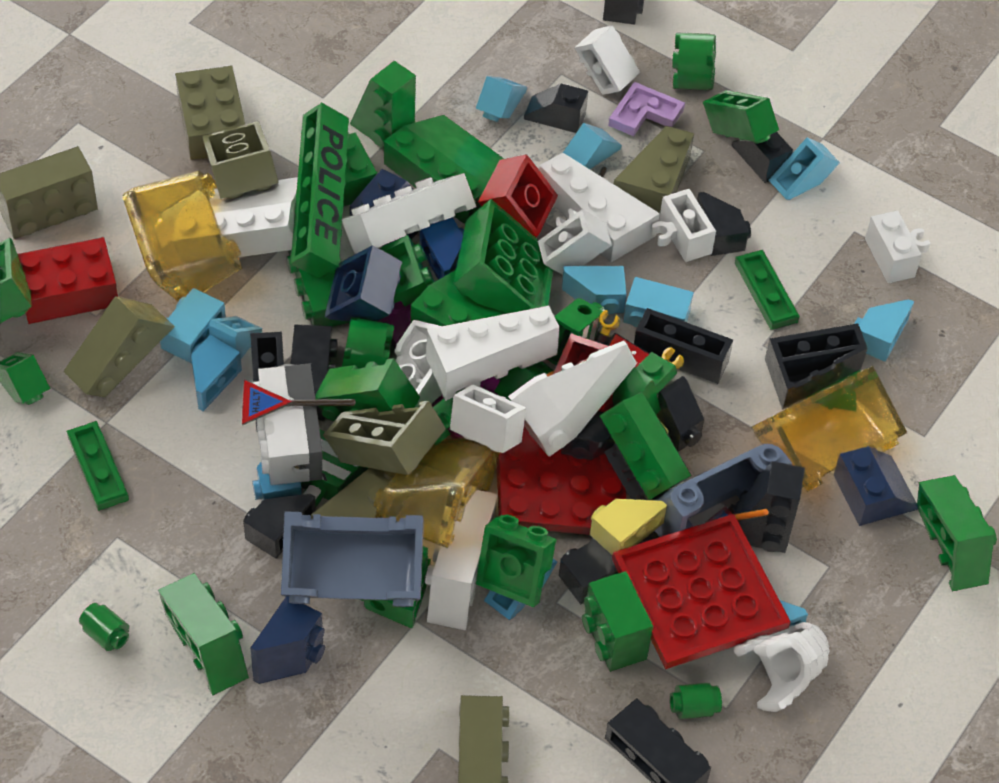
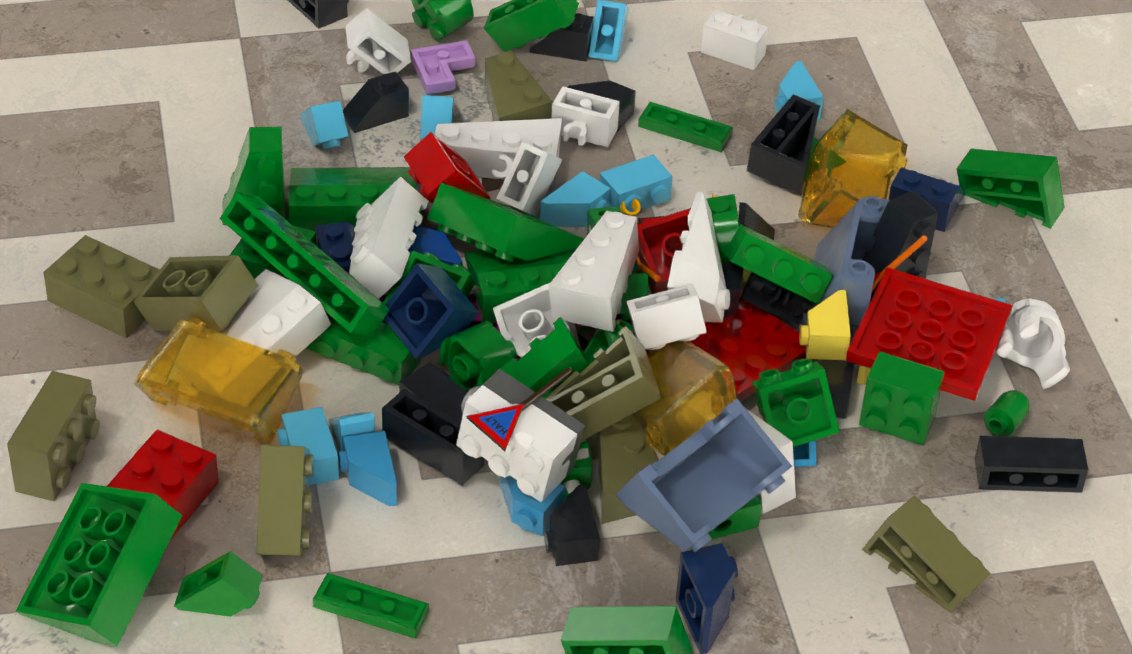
camera: 45 degrees left, 10 degrees down
(703, 351) = (678, 191): black brick -> none

